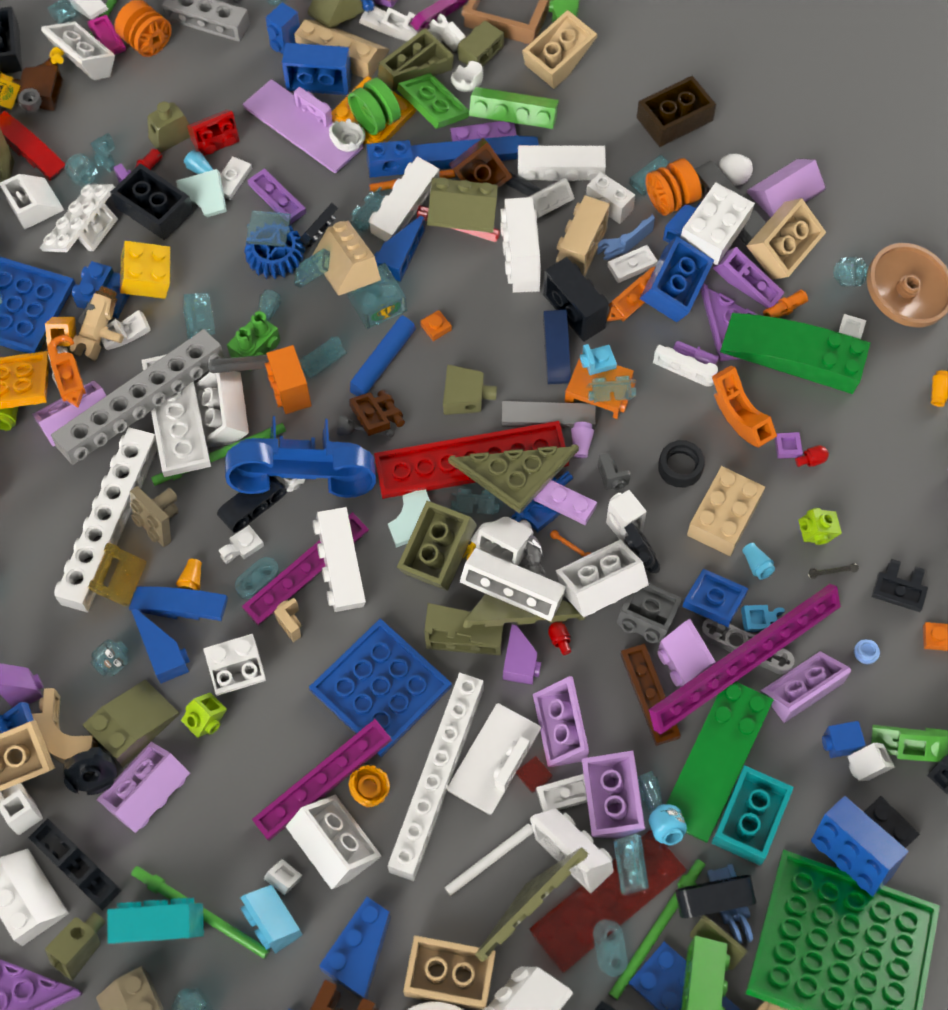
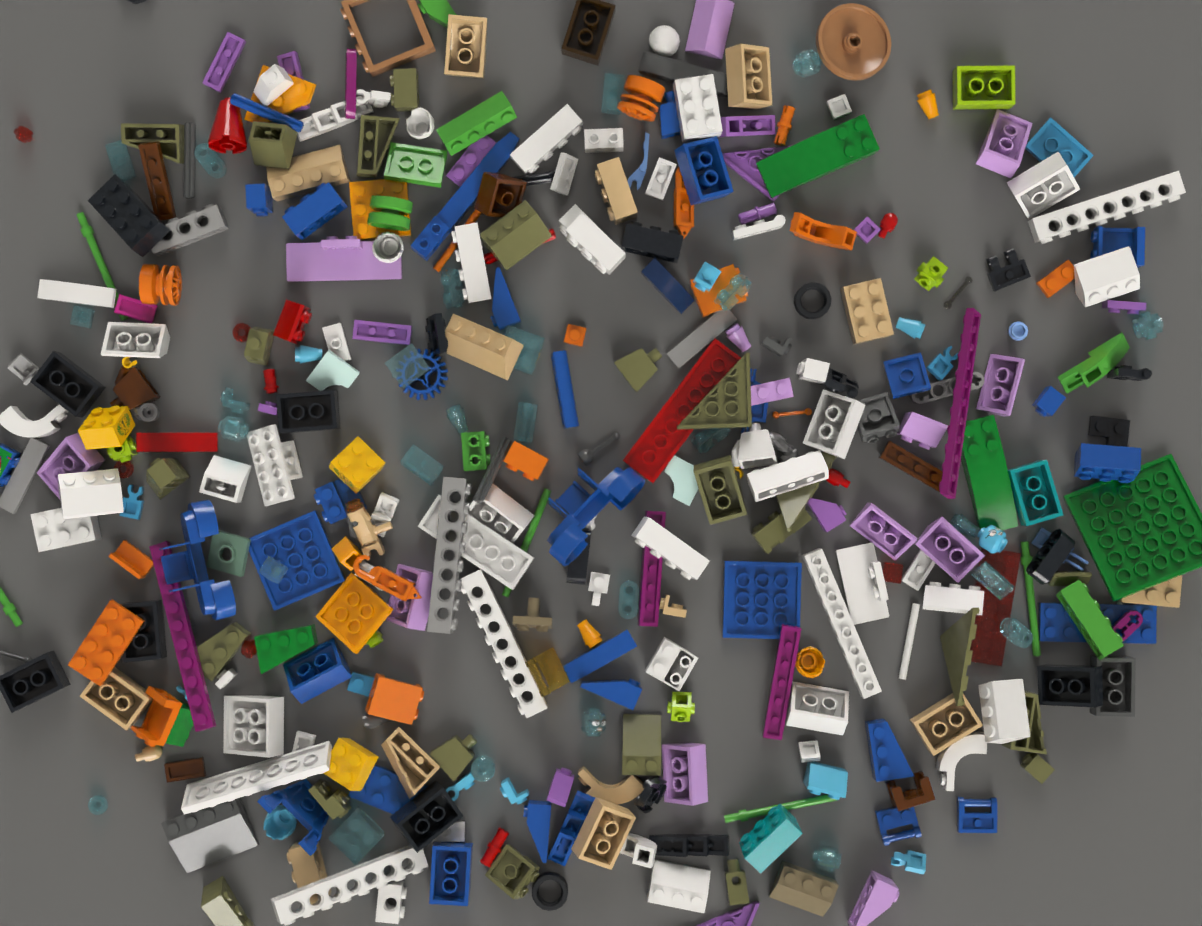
camera: 40 degrees left, 25 degrees up
(312, 268) = (462, 368): clear light blue plate -> none
(370, 414) = (595, 436): reddish brown plate -> none
(870, 762) = (1074, 403): white brick -> none

